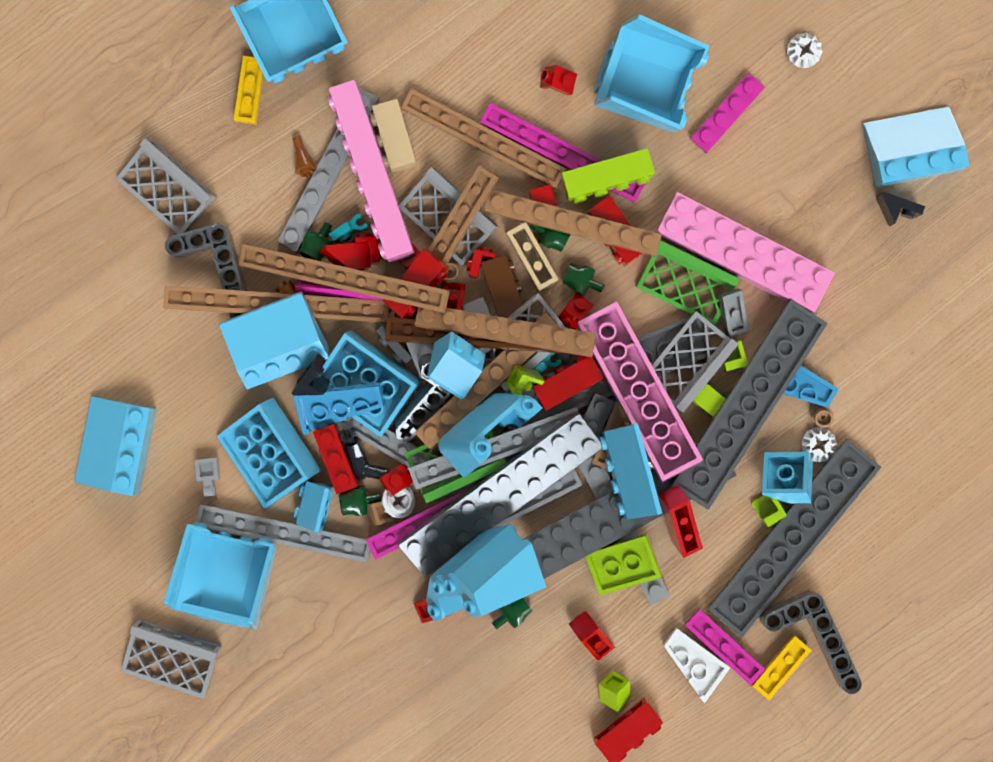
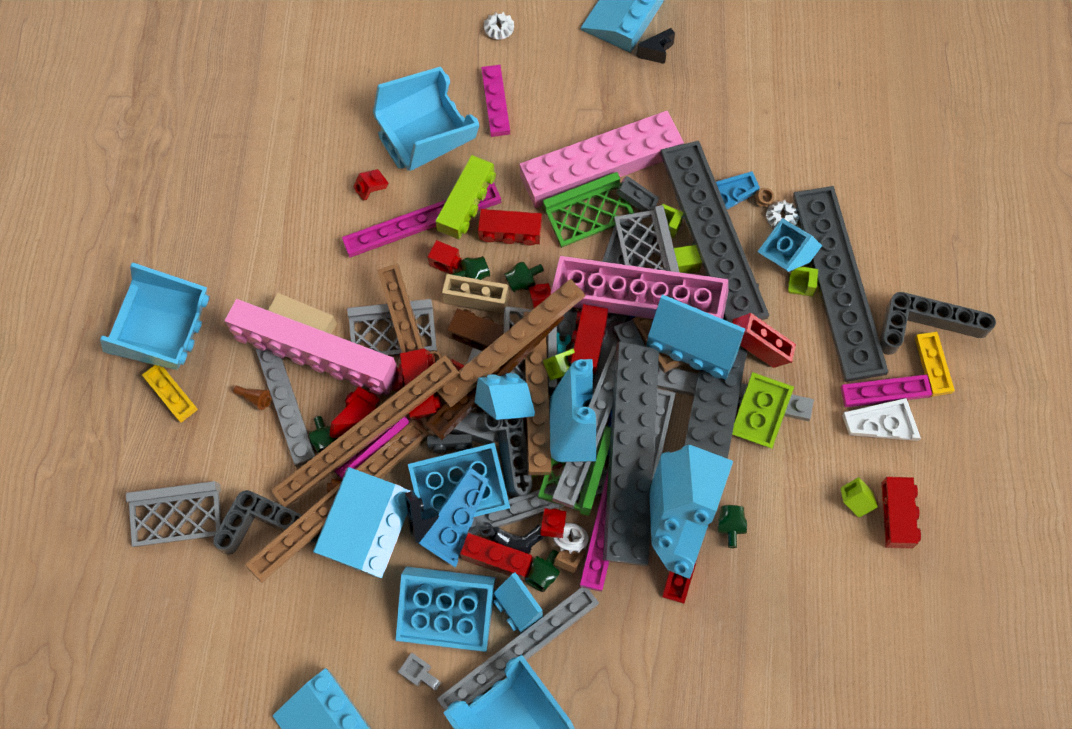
camera: 50 degrees left, 20 degrees down
(343, 232) = (333, 405): teal plate -> none
(474, 264) = (443, 336): red bracket -> none
(483, 138) = (360, 263): medium nougat plate -> none
(572, 223) = (476, 246): medium nougat plate -> none
(591, 635) = (799, 478): red slope -> none

